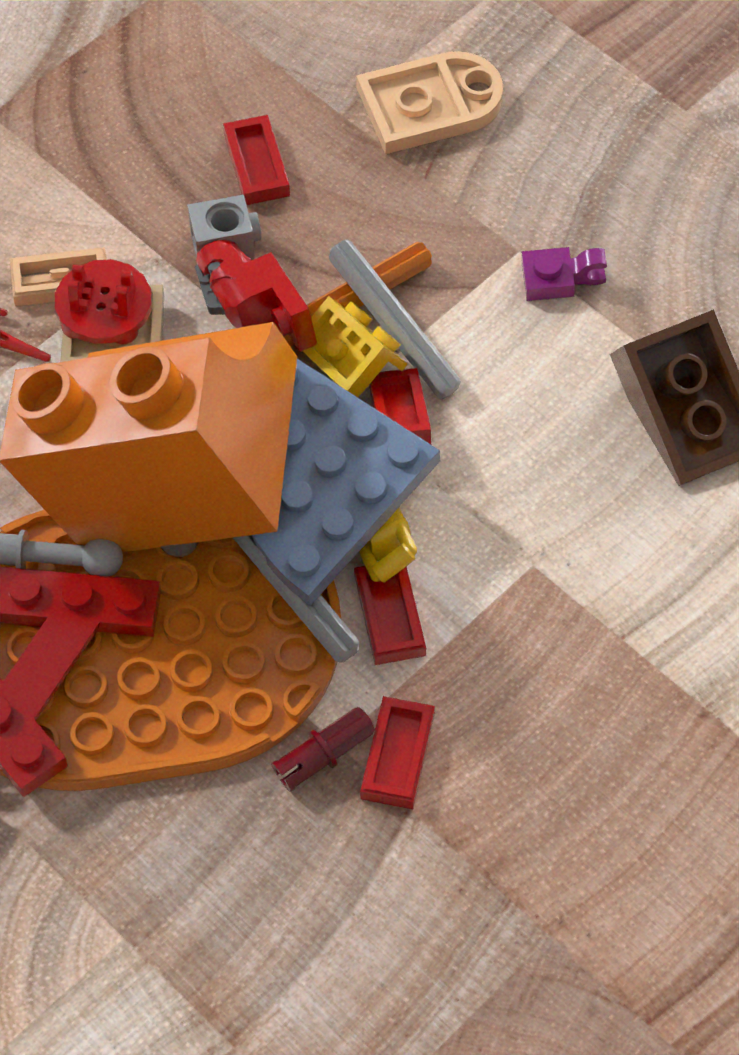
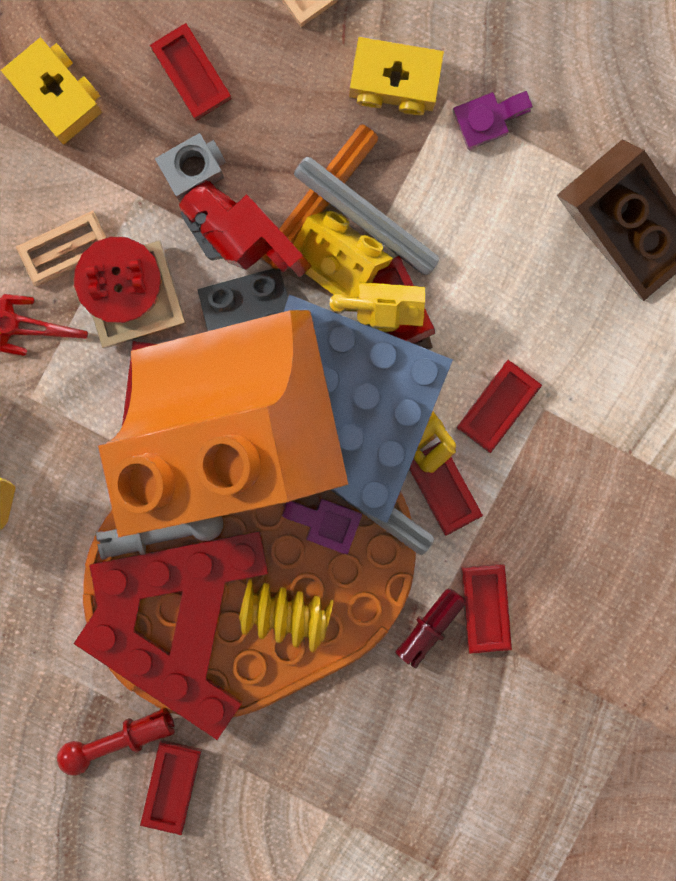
camera: 15 degrees left, 30 degrees up
(109, 135) = (35, 71): none -> yellow brick
(152, 673) = (284, 616): none -> yellow piece
(238, 595) = (329, 524): none -> magenta plate
(376, 384) = (384, 305): none -> yellow piece
(469, 206) = (418, 74): none -> yellow brick
(481, 545) = (499, 406): none -> red tile

